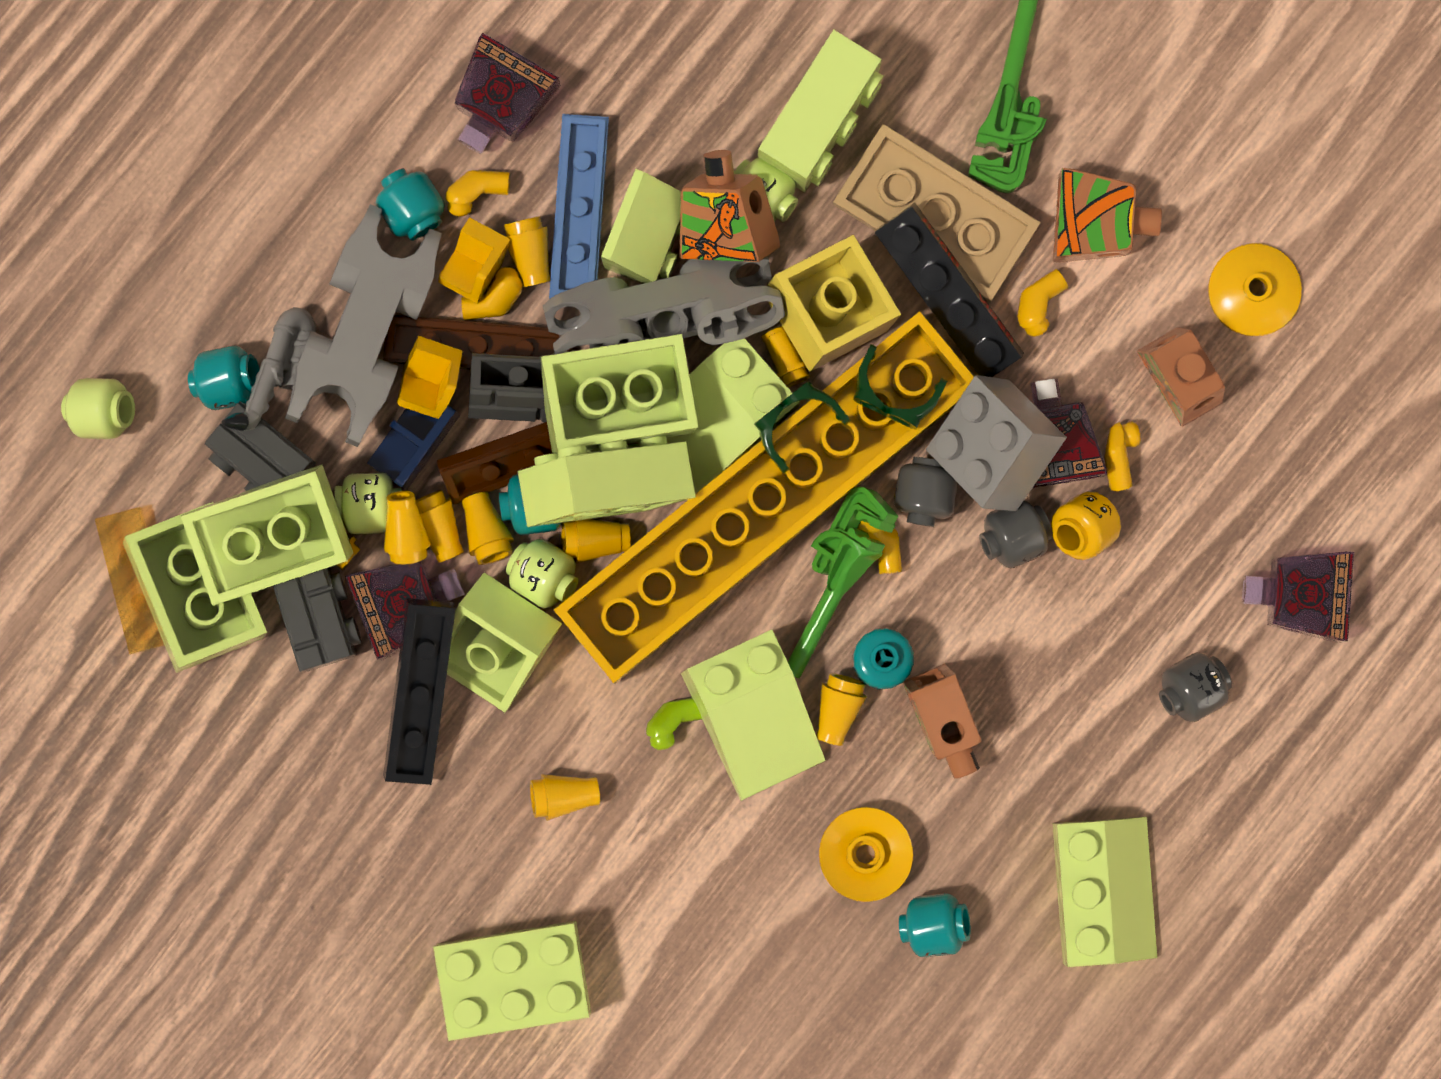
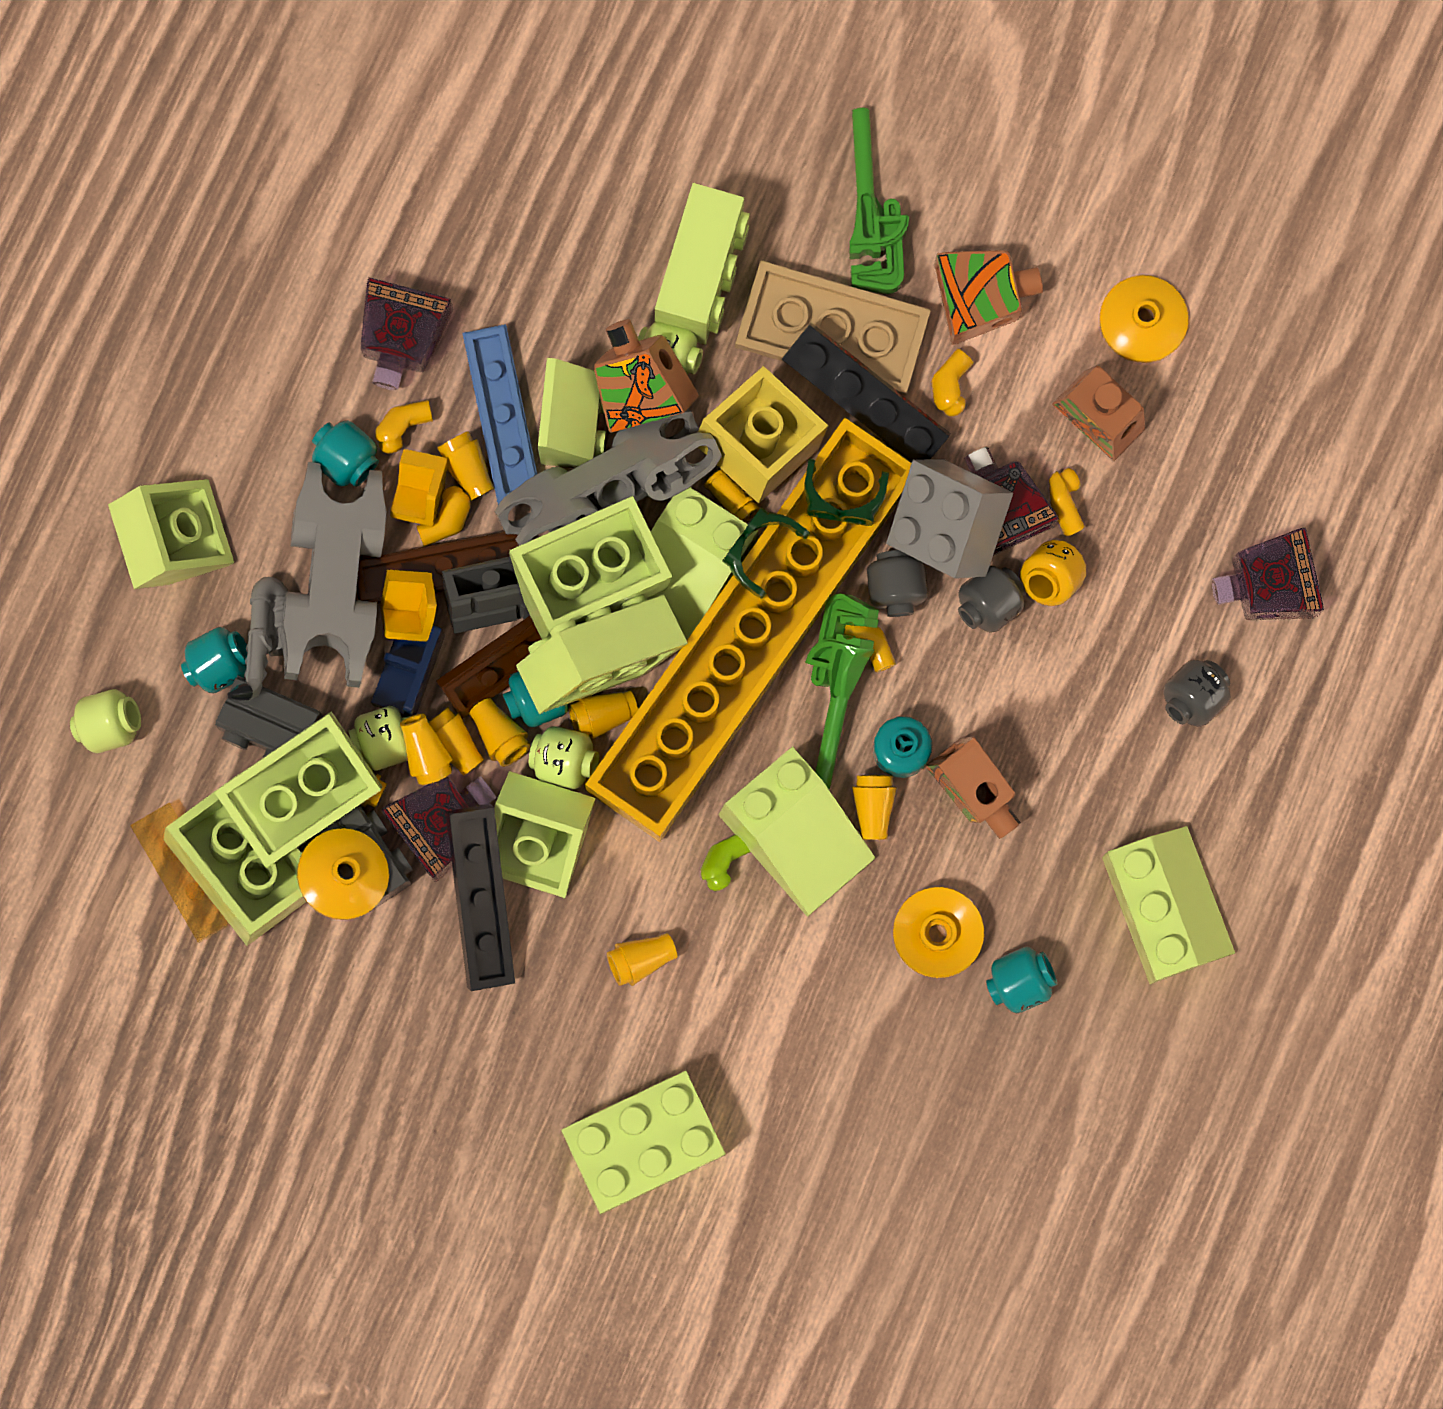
camera: 25 degrees left, 5 degrees down
(214, 236) = (170, 532): none -> yellowish green slope
(263, 631) = (327, 890): none -> yellow dish

